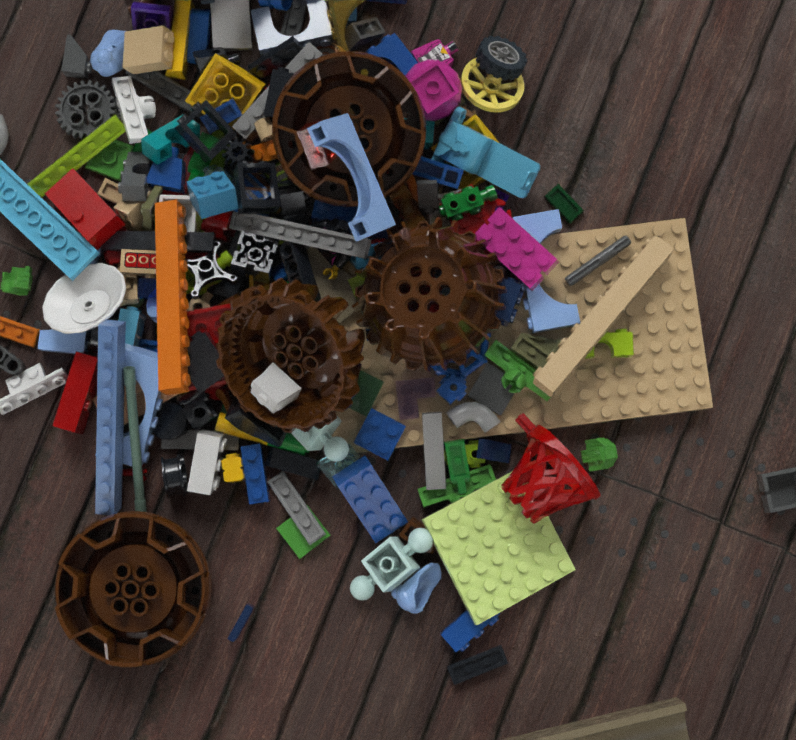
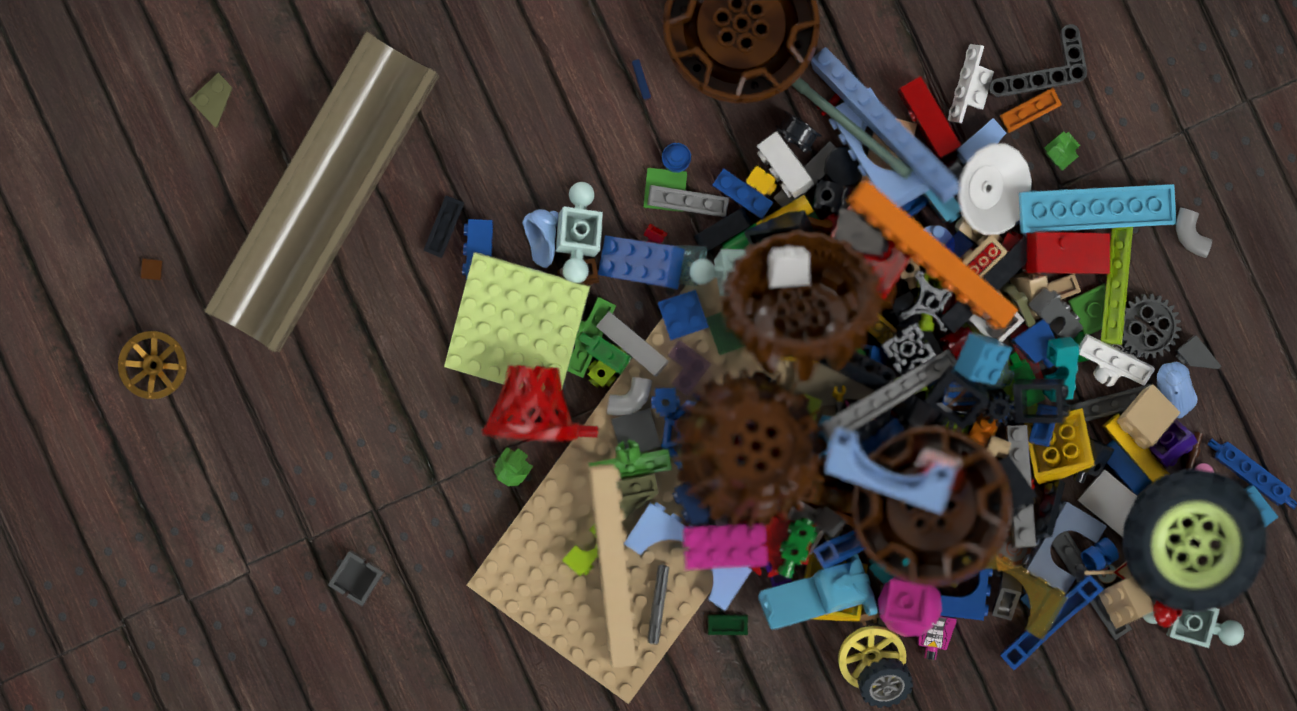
camera: 130 degrees right, 5 degrees up
(273, 545) = (676, 157): none -> blue plate
(342, 508) = (655, 234): none -> red tile
(493, 451) = (590, 389): dark blue tile -> none

